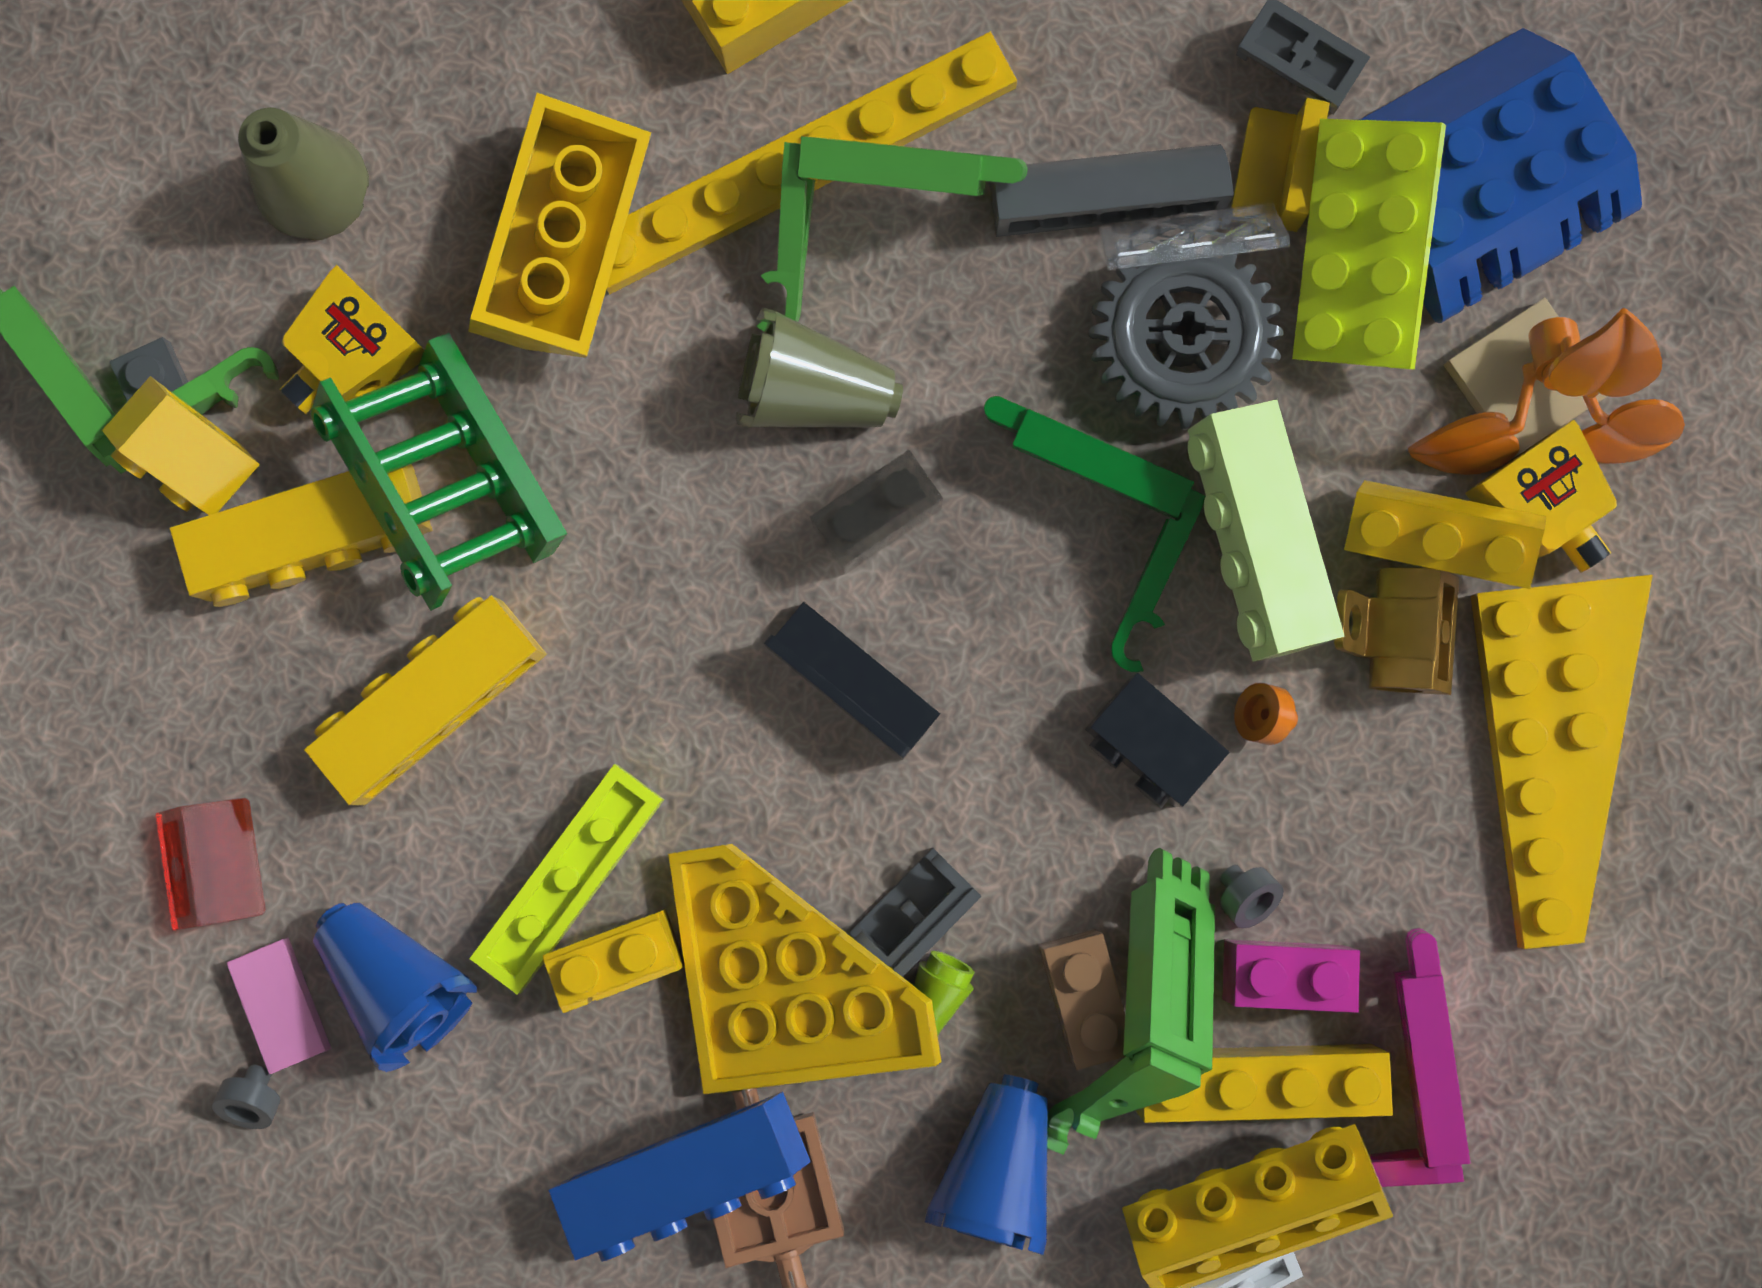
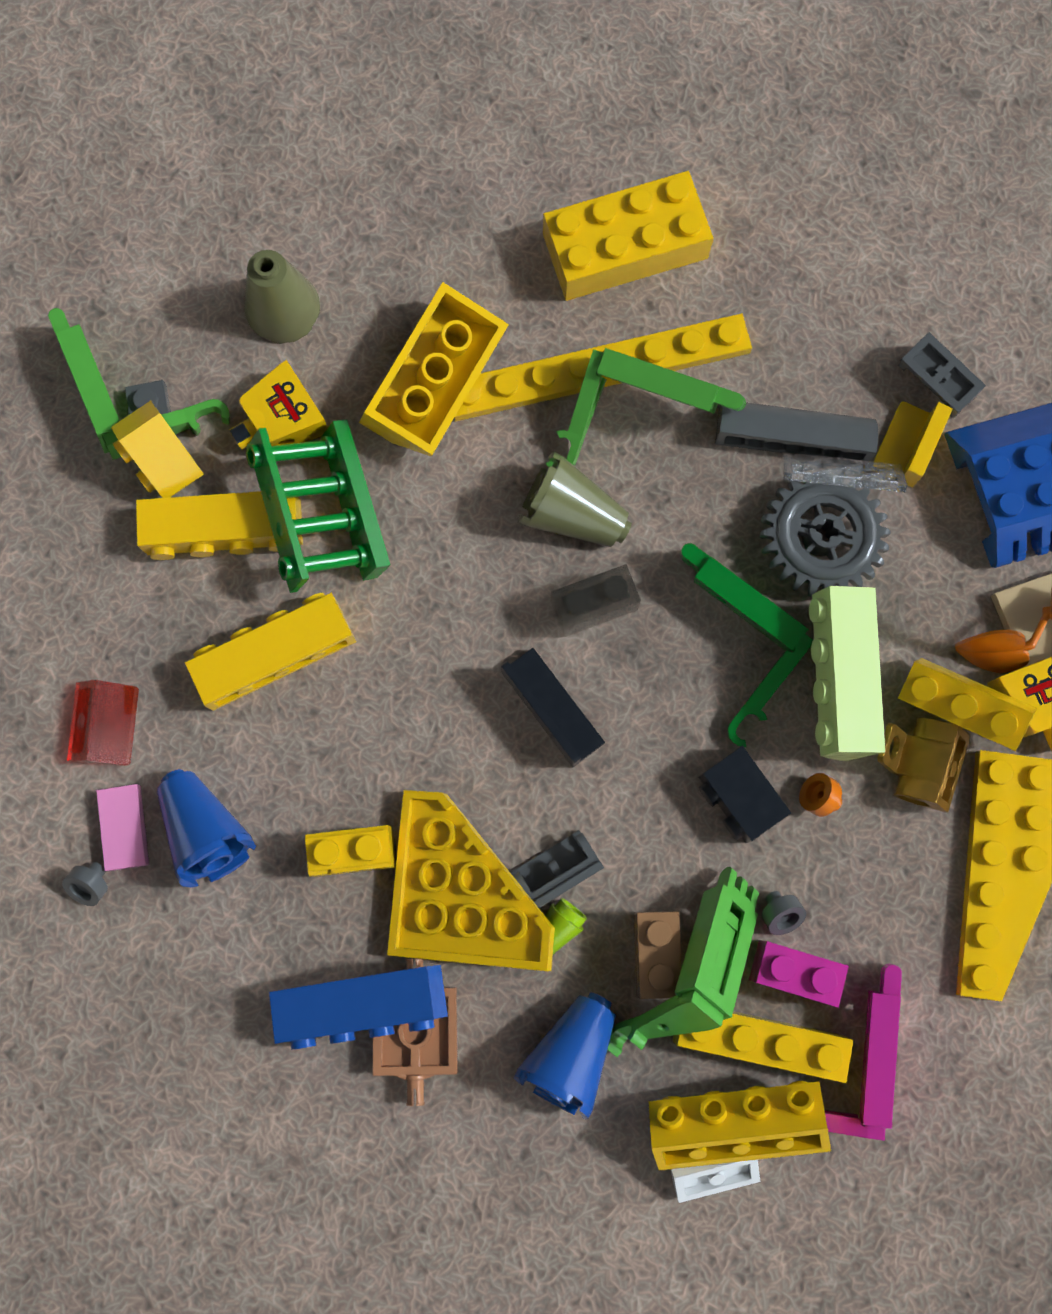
camera: 10 degrees right, 5 degrees down
(566, 879) = (332, 790): neon yellow plate -> none
(1368, 242) = (958, 503): neon yellow plate -> none

